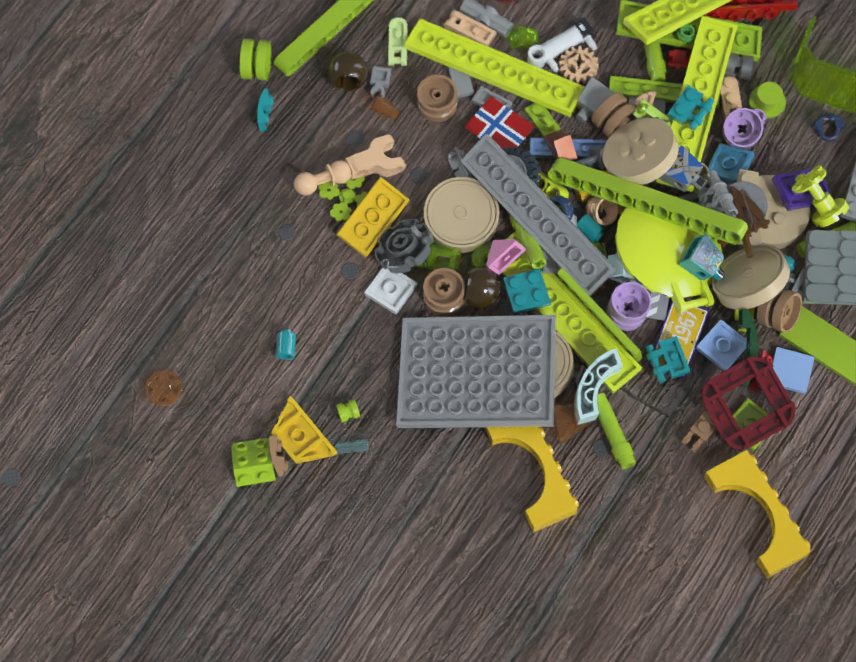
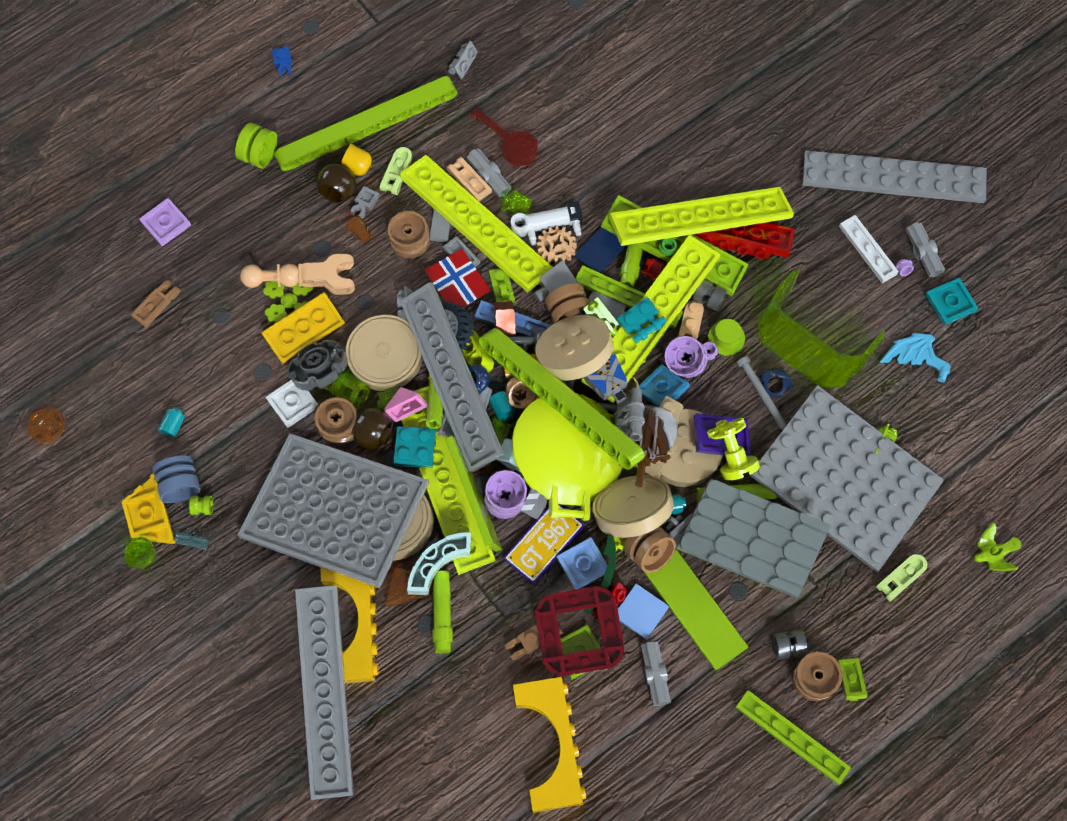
camera: 20 degrees right, 0 degrees up
(193, 160) = (165, 222): none -> lavender tile
(219, 241) = (155, 304): none -> medium nougat hinge
(252, 462) = (93, 523): lime bracket -> none
(264, 108) = (247, 192): teal slope -> none
(279, 461) = (115, 531): medium nougat slope -> none
(311, 476) = (142, 556): none -> clear neon green helmet
(316, 393) = (176, 479): none -> sand blue wheel
(356, 43) = (357, 160): none -> yellow helmet
(540, 536) = (324, 692): none -> light grey plate
(620, 56) = (600, 250): none -> dark blue piece
(649, 97) = (607, 298): light nougat tile -> none
(673, 357) = (528, 559): teal plate -> none
(703, 259) = (592, 473): torso -> none
(818, 138) = (744, 362): none -> light grey bar
(826, 419) = (655, 674): none -> light grey piece

